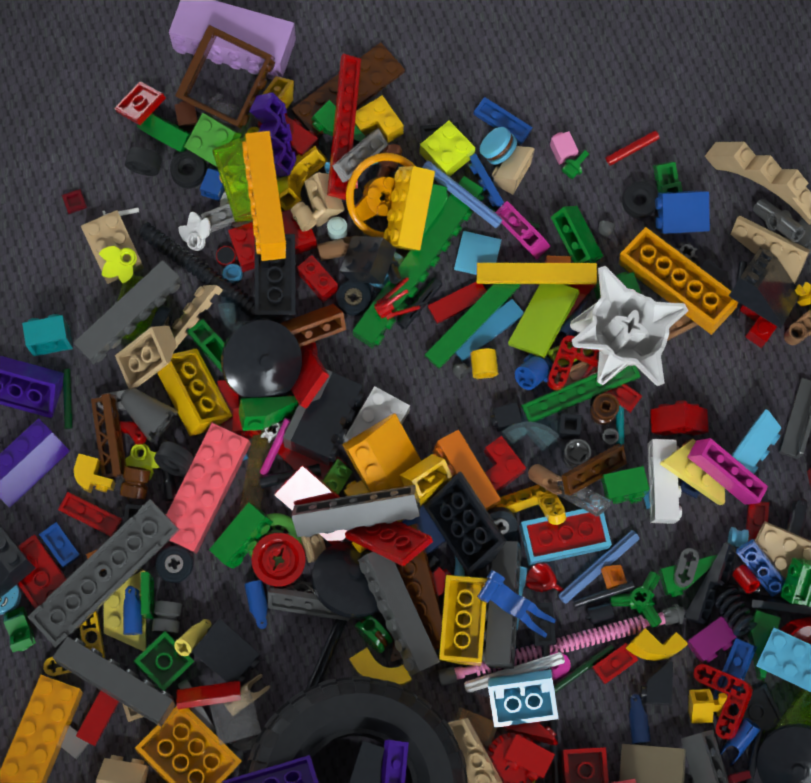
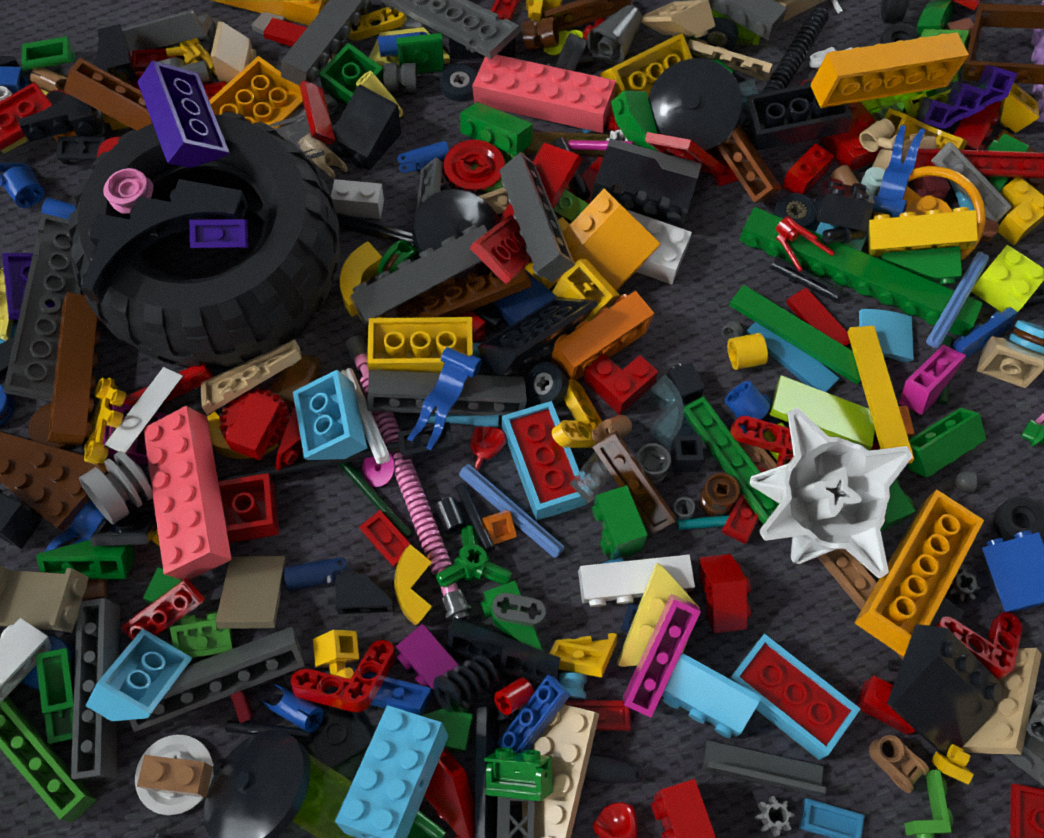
camera: 85 degrees right, 10 degrees down
(298, 666) = (358, 198): none -> white brick
(352, 212) = (896, 176): none -> blue flag
(716, 527) = (585, 655): none -> yellow wing
(737, 248) = (991, 649): none -> red beam
(757, 388) = (795, 697): none -> red brick

